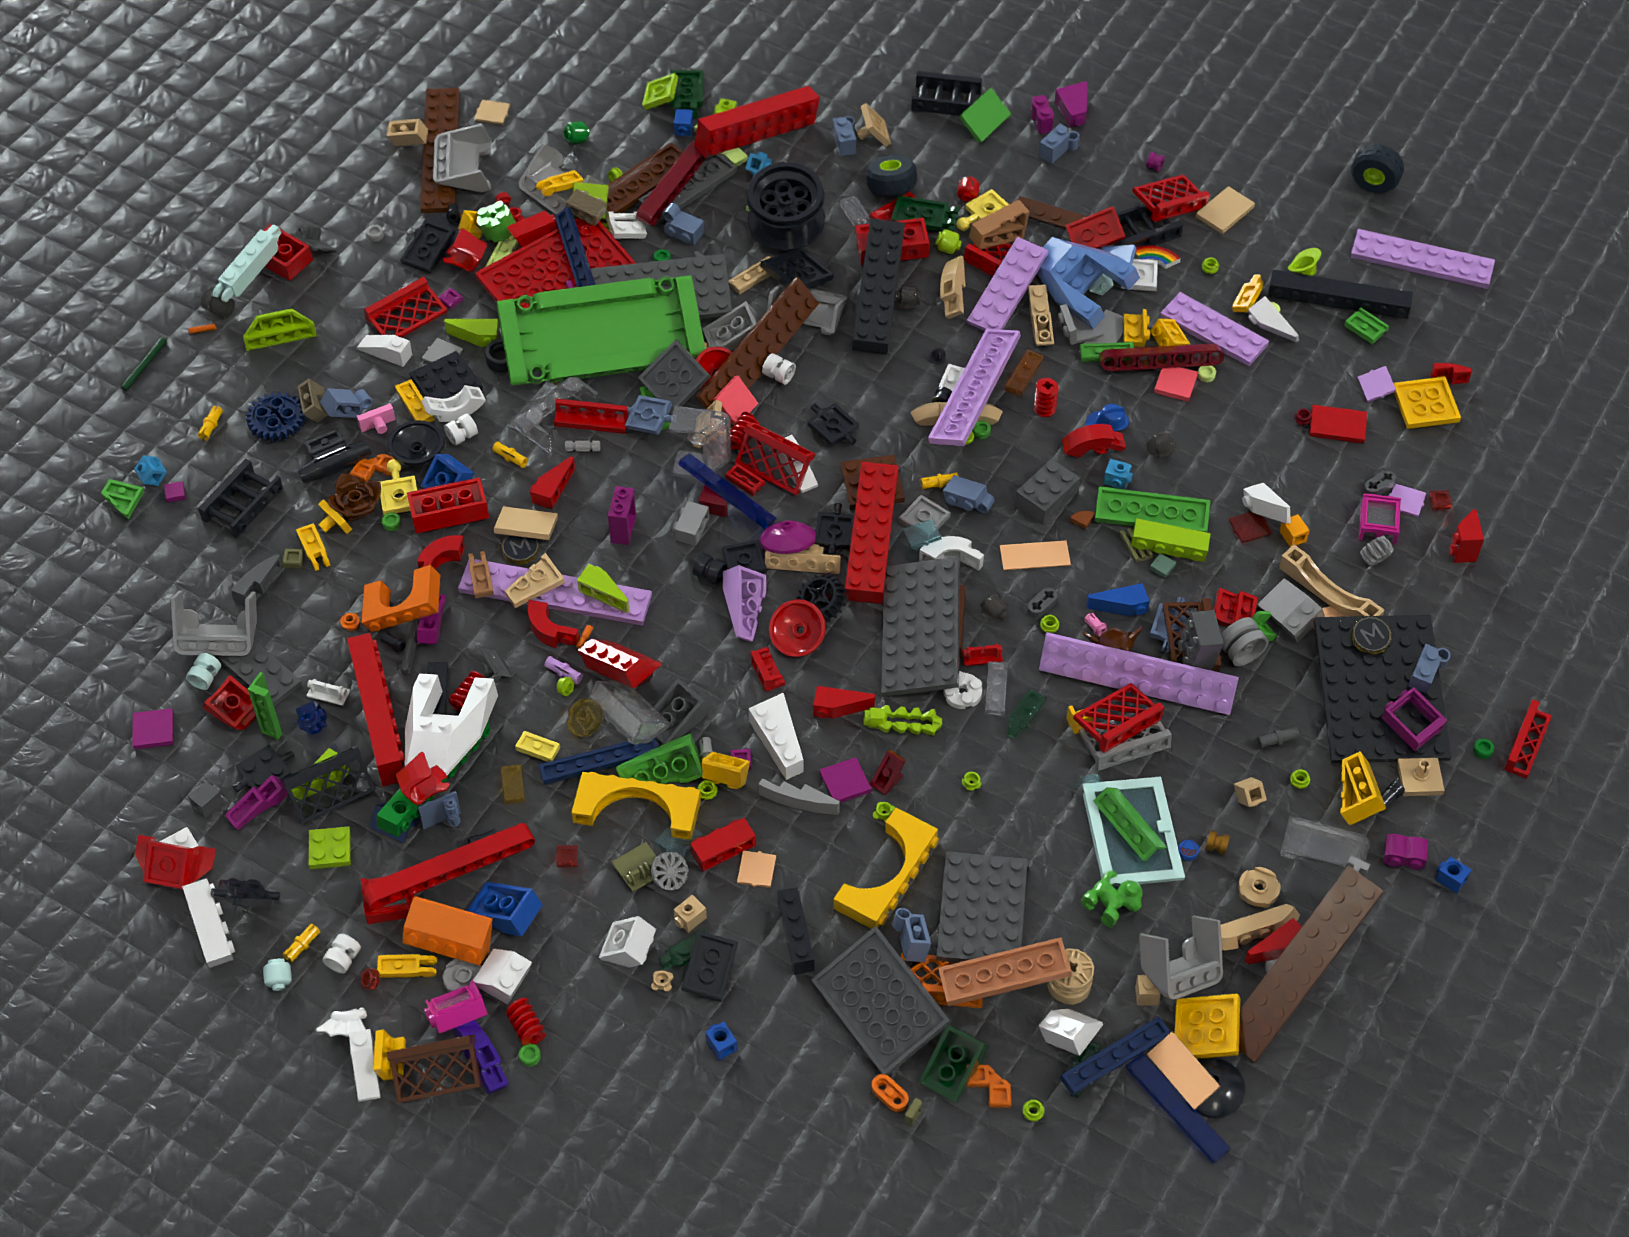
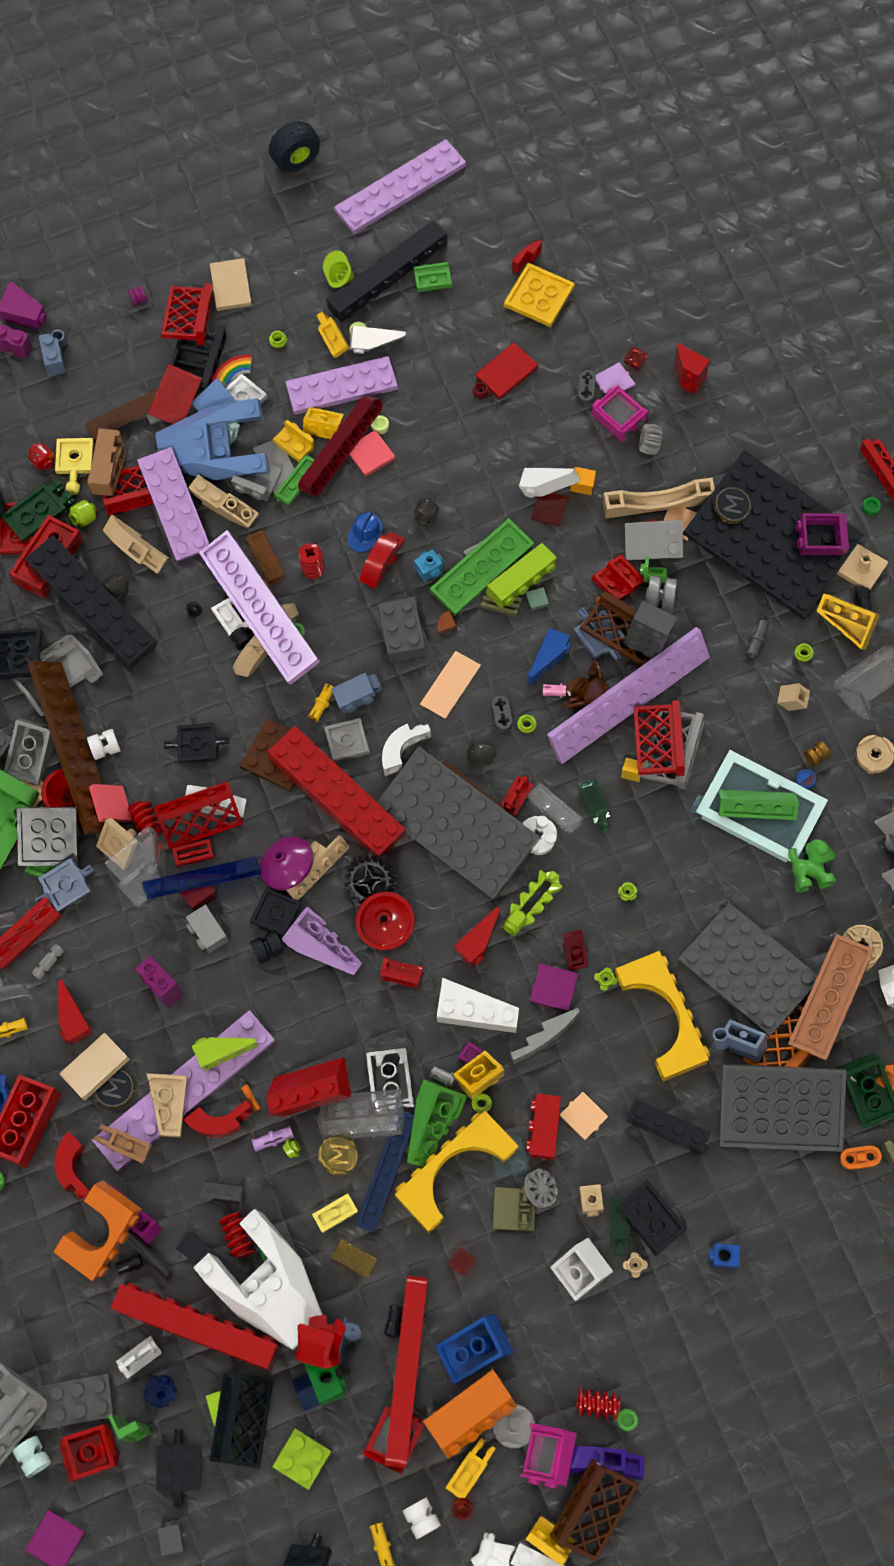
camera: 50 degrees left, 15 degrees up
(256, 802) = (210, 1496): magenta slope -> none
(350, 625) = (83, 1288): orange plate -> none
(502, 974) = (540, 1393): white slope -> none
(834, 530) = (306, 819): black plate -> none
(922, 534) = (368, 755): clear light blue piece -> none
(1376, 384) = (493, 314): lavender piece -> none
(1427, 666) = (790, 490): sand blue hinge -> none

